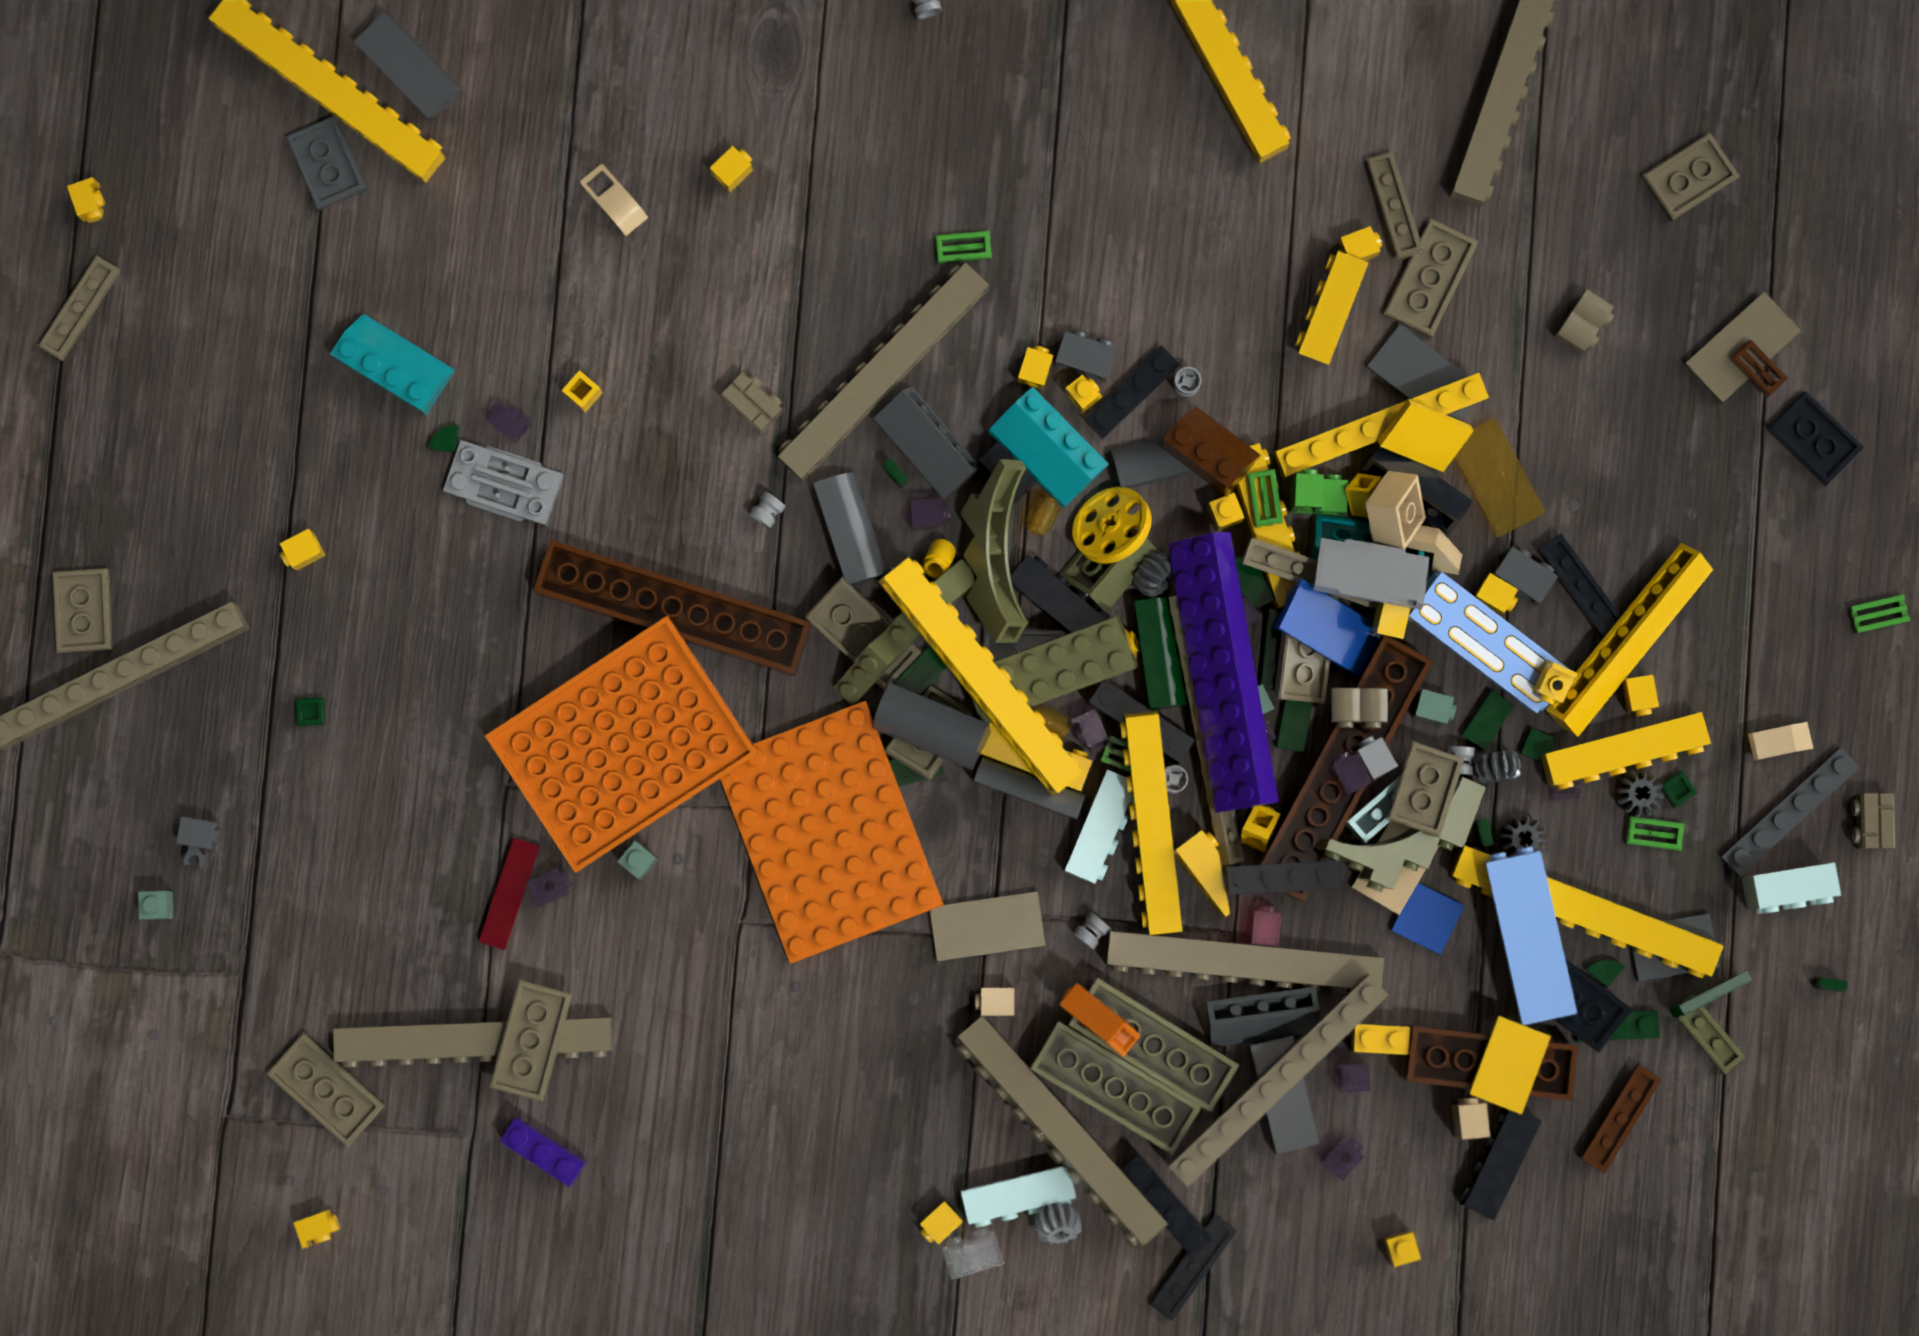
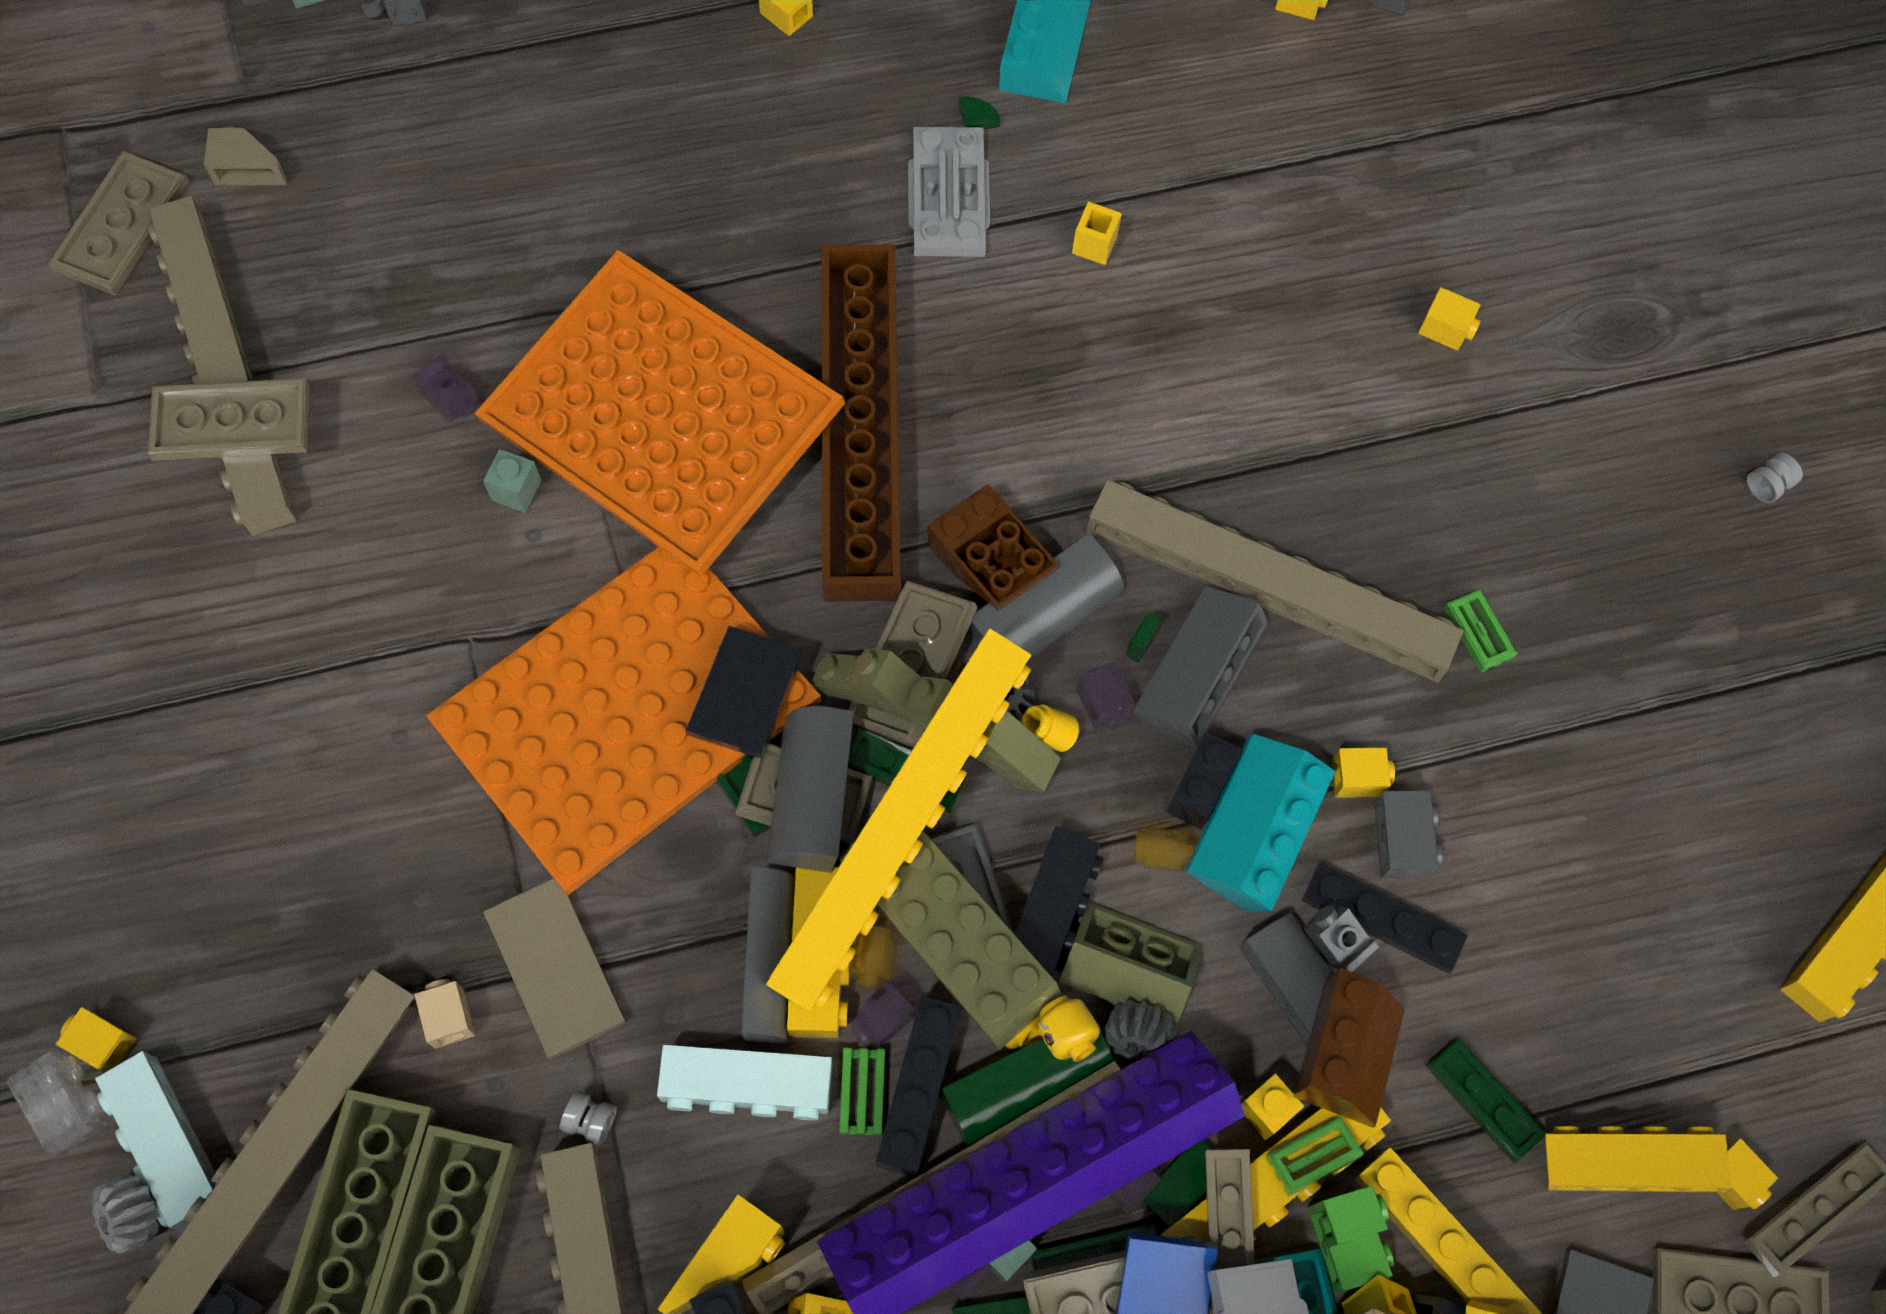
camera: 70 degrees right, 15 degrees down
(304, 988) = (240, 159): none -> dark tan slope
(310, 711) = (592, 72): dark green tile -> none
(508, 421) = (1025, 171): clear purple brick -> none
(509, 894) = (419, 348): dark red tile -> none
(543, 1151) = (87, 486): dark purple brick -> none
(617, 202) = (1345, 211): tan piece -> none
(752, 402) = (1164, 433): dark tan brick -> none
(767, 509) = (1032, 494): light grey wheel -> none
(803, 552) = (989, 548): none -> reddish brown slope
(850, 748) = (744, 692): none -> black tile
(987, 554) = (1083, 786): olive arch -> none
(1083, 393) = (1355, 848): yellow brick -> none
(1099, 1019) = (441, 1165): orange slope -> none
(1114, 534) = (1187, 945): yellow wedge -> none
(1138, 426) = (1340, 937): none -> dark grey brick
(1141, 618) = (1068, 1029): none -> yellow head
(1153, 823) = (770, 1150): yellow brick -> none
(1177, 777) = (850, 1158): light grey wheel -> none
(1189, 378) = (1438, 982): light grey wheel -> none
(1264, 377) = (1486, 1100): none -> dark green tile

